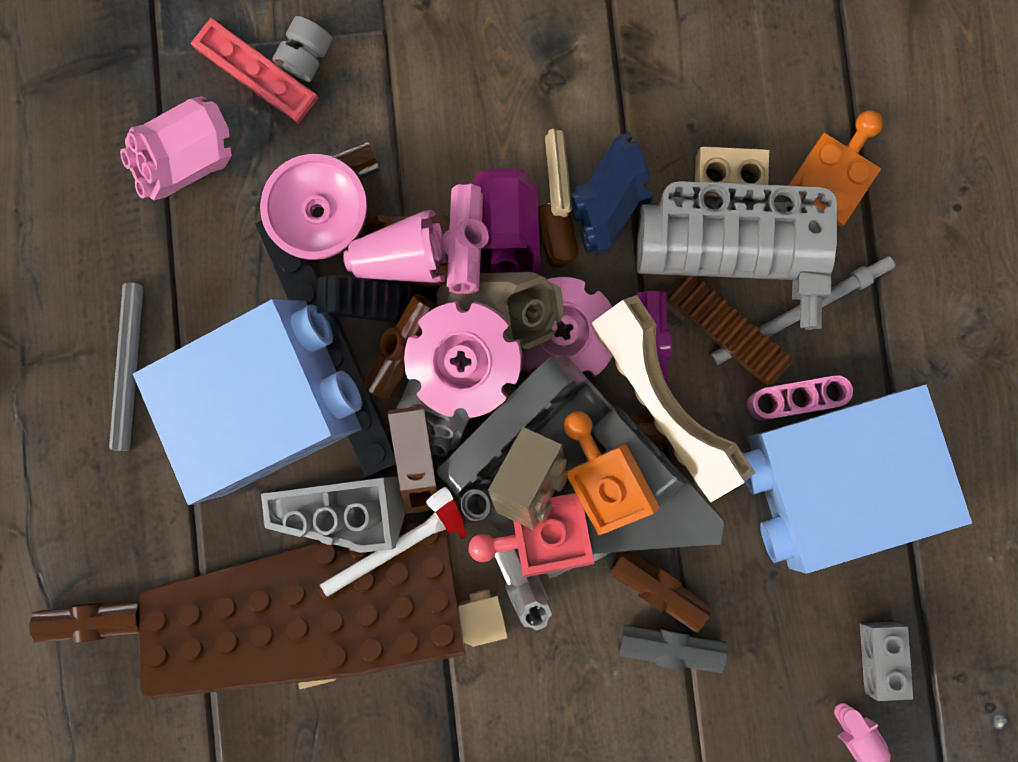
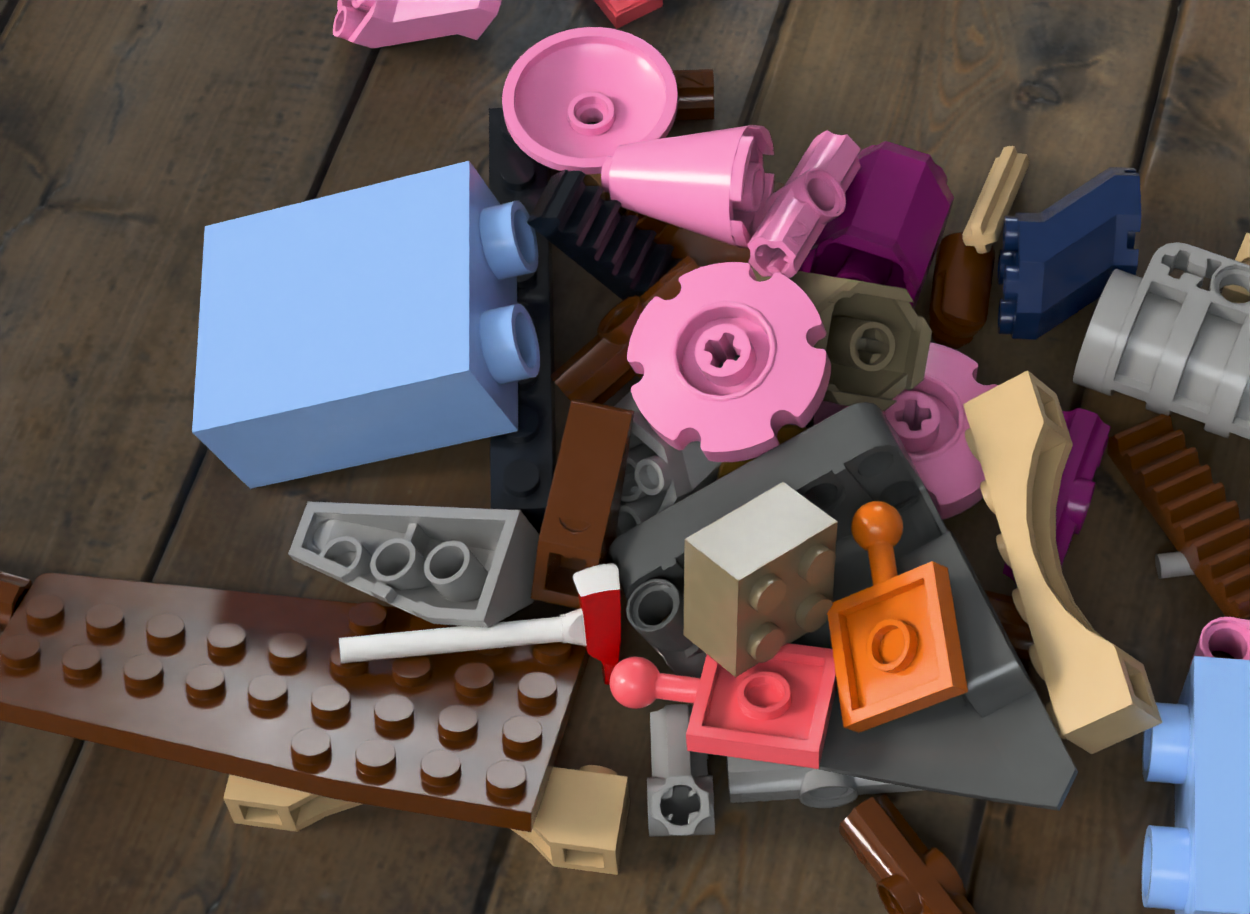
camera: 25 degrees right, 25 degrees down
(125, 367) = (187, 258): light grey axle -> none

